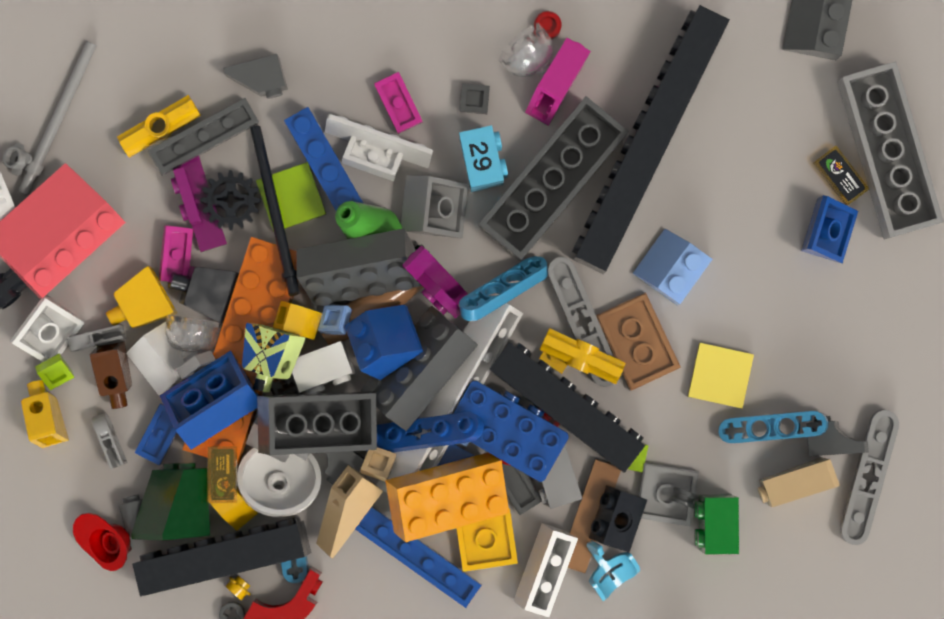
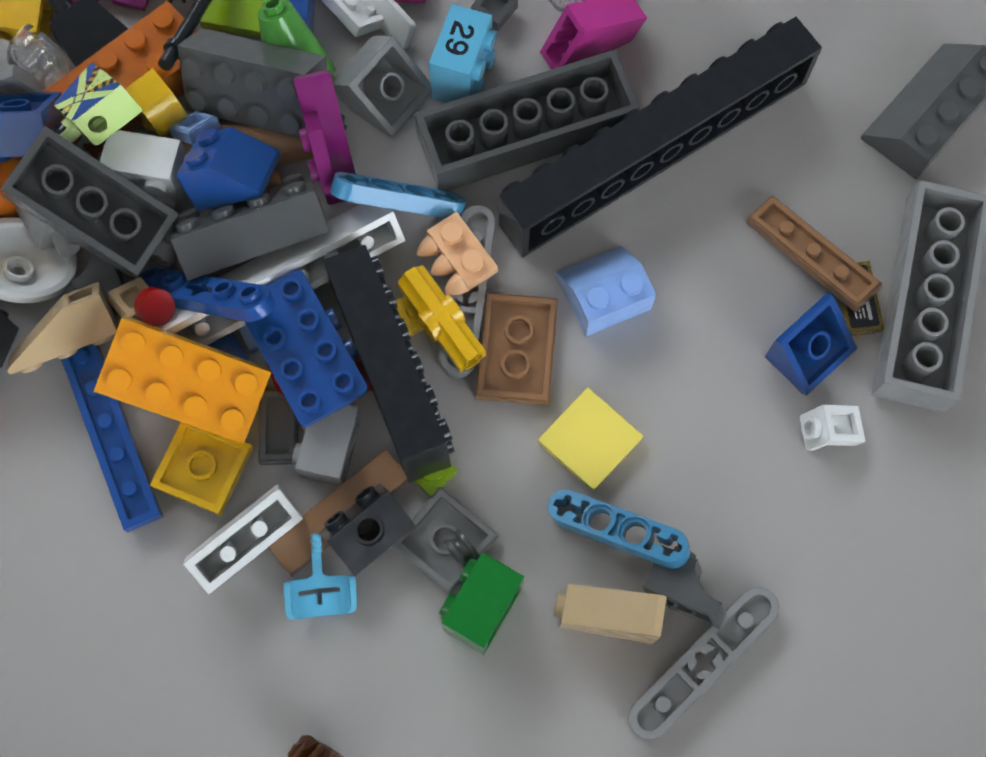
camera: 25 degrees right, 15 degrees down
(397, 461) = (154, 306): none -> red tile
(564, 302) = (459, 253): none -> light nougat plate
(796, 162) = (814, 253): none -> medium nougat tile
(870, 278) = (832, 426): none -> white bracket

